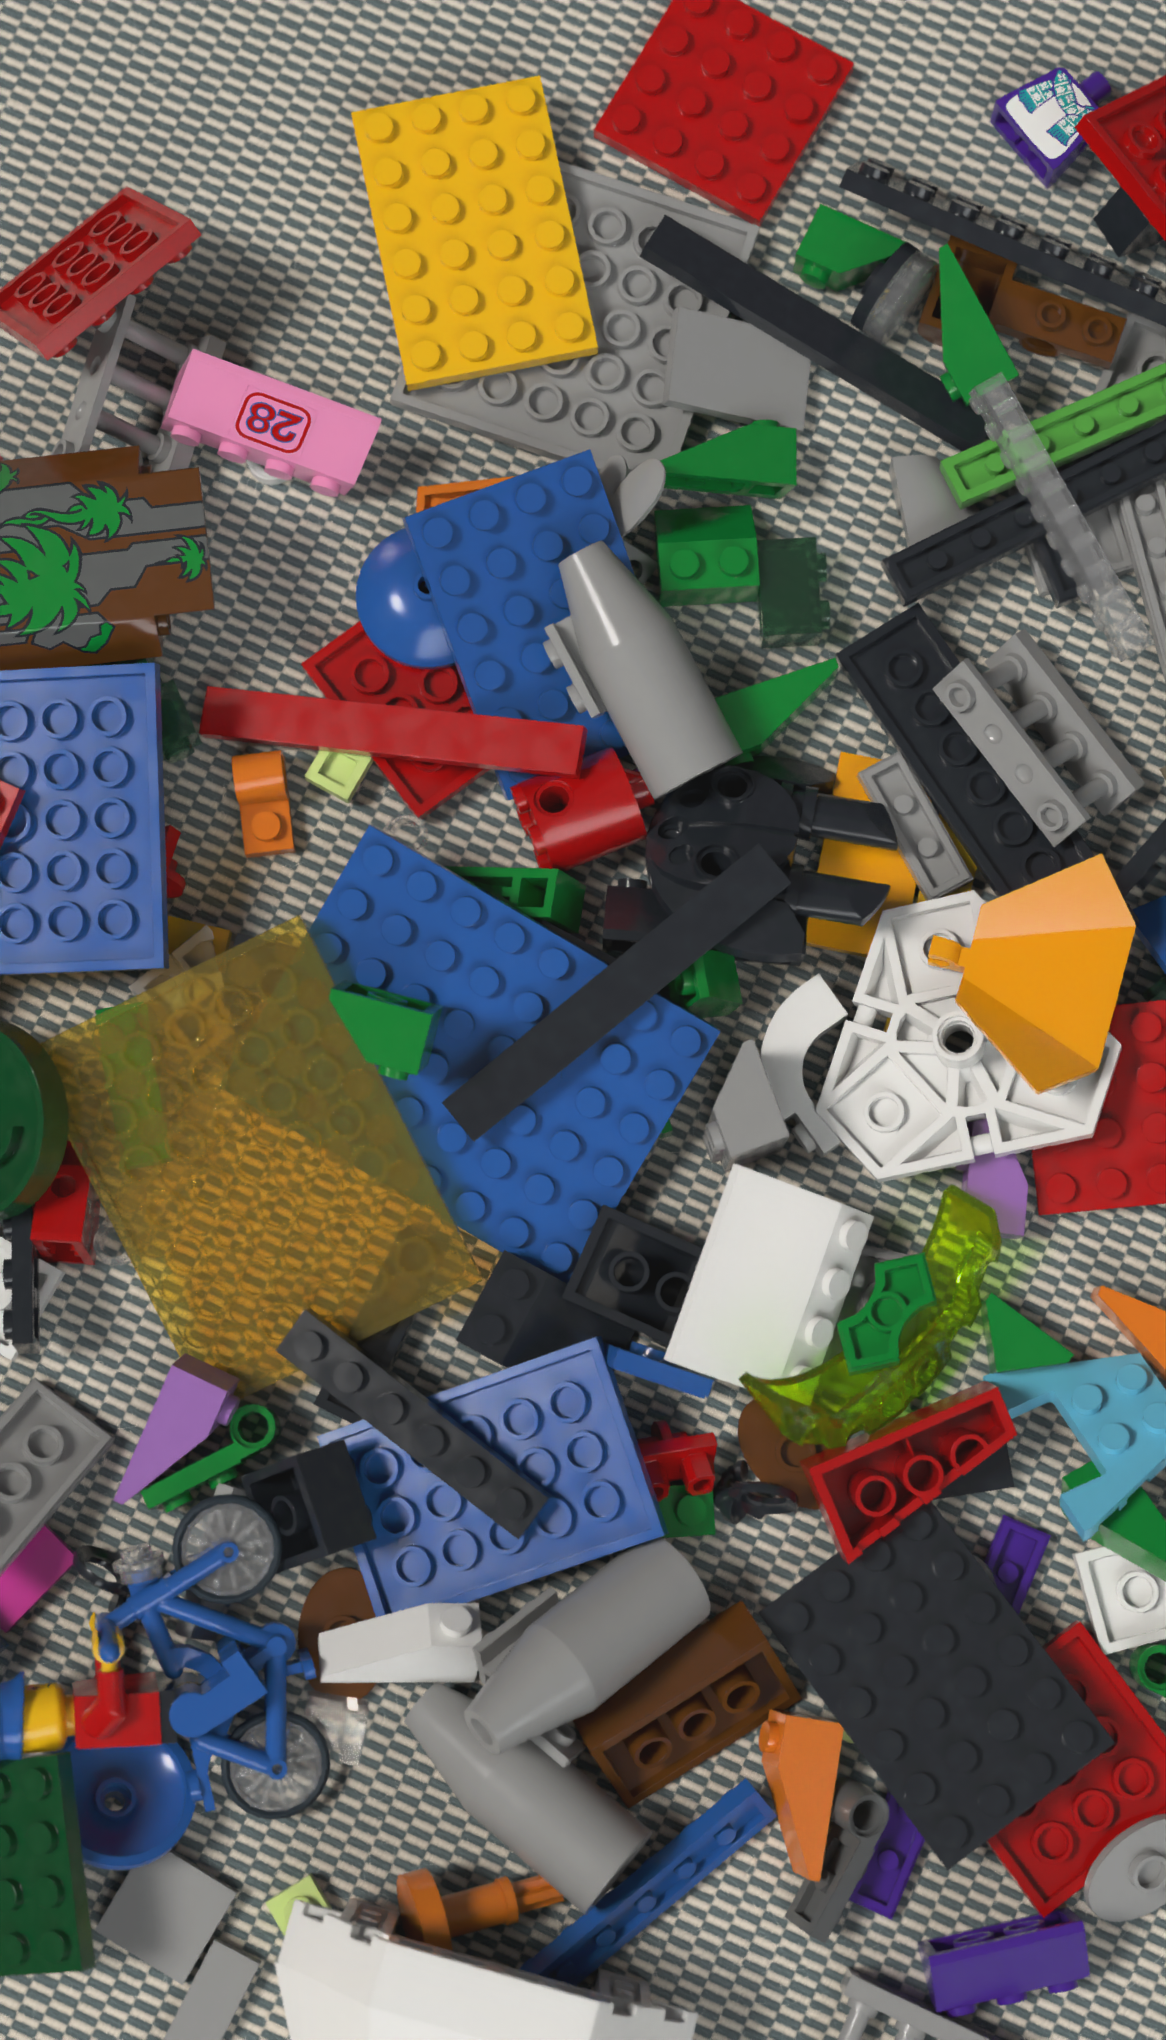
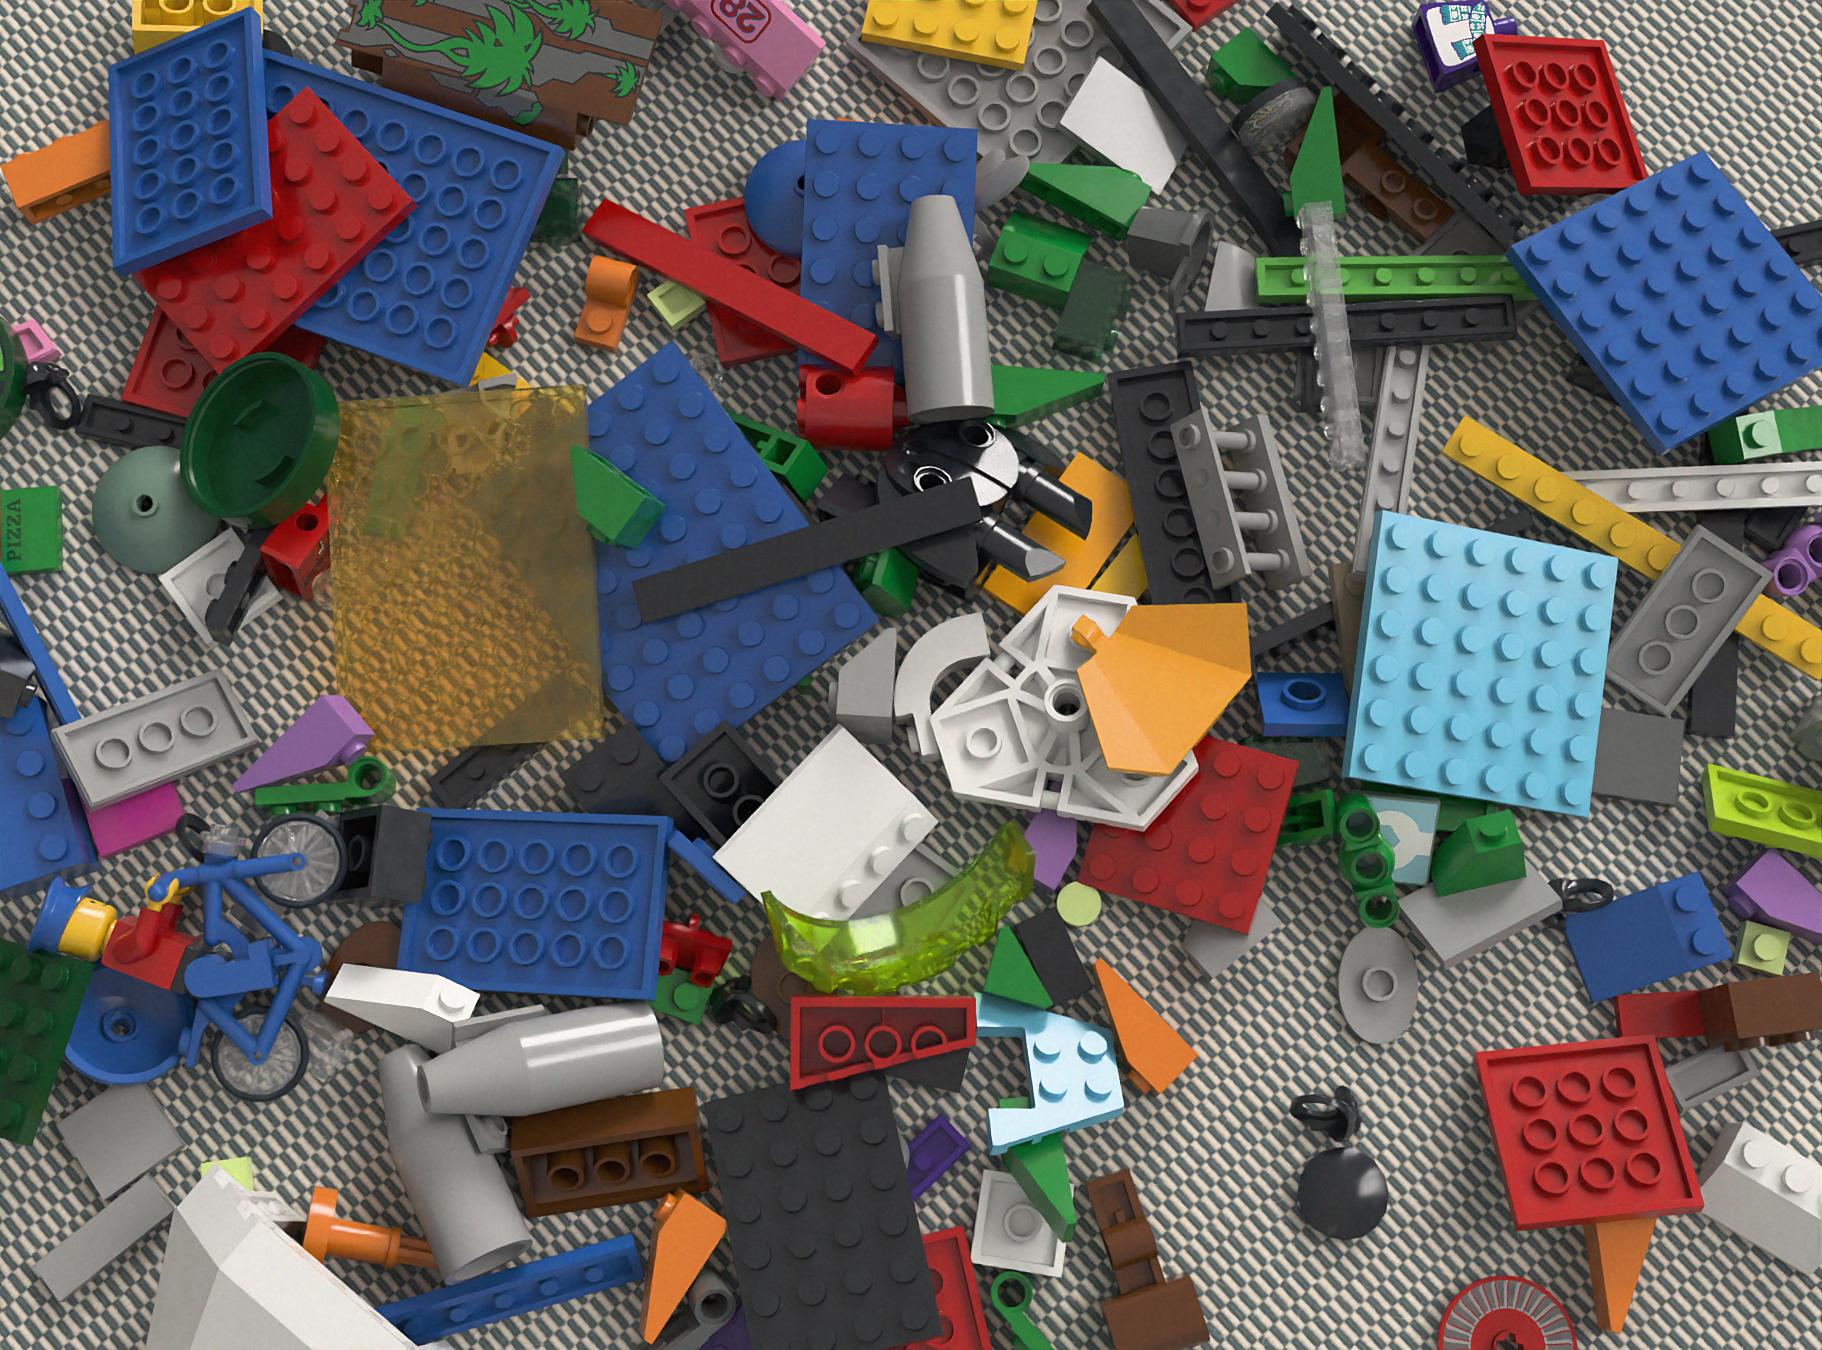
camera: 20 degrees right, 5 degrees down
(414, 1423) = (494, 827): black plate -> none
(842, 483) = (1171, 246): none -> dark grey container
(873, 1334) = (897, 913): green tile -> none
(918, 829) = (1111, 532): light grey tile -> none
(1048, 1302) = (1053, 956): none -> black tile
(1050, 1237) = (1078, 904): none -> yellowish green tile

